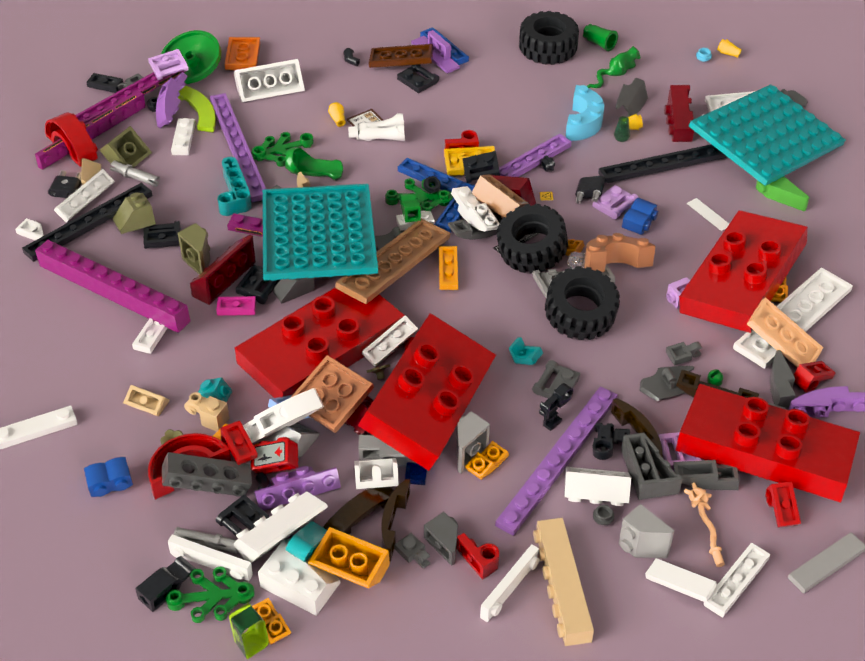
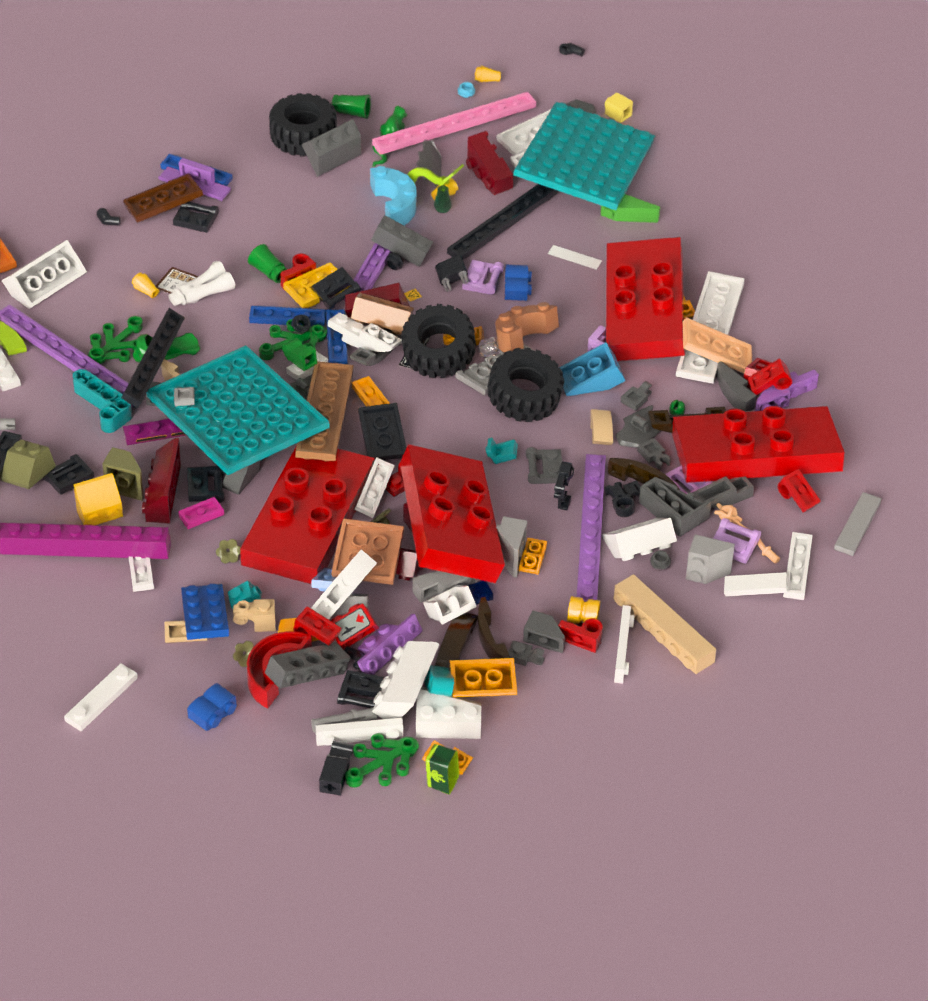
camera: 30 degrees left, 0 degrees up
(160, 263) = (98, 500): none -> yellow slope
(167, 390) = (204, 611): none -> blue plate
(227, 345) = (232, 554): none -> olive plant
(283, 204) = (184, 396): none -> light grey tile
(287, 167) = (153, 358): none -> black plate
(432, 295) = (382, 431): none -> black plate
(442, 127) = (266, 262): none -> green plant
(491, 531) = (581, 610): none -> yellow wheel
(559, 60) = (334, 147): none -> dark grey slope
(563, 148) = (402, 240): none -> dark grey slope
(611, 100) = (420, 171): none -> lime piece
(630, 367) = (601, 427): none -> tan slope
(655, 315) = (592, 372): none -> dark azure slope
(665, 410) = (654, 452): none -> dark grey plate
(676, 75) = (453, 123): none -> bright pink plate
(684, 533) = (742, 549): none -> lavender plate
(815, 51) = (570, 48): none -> black arm
(823, 381) = (773, 374): none -> red plate
(826, 107) = (618, 107): none -> light yellow brick

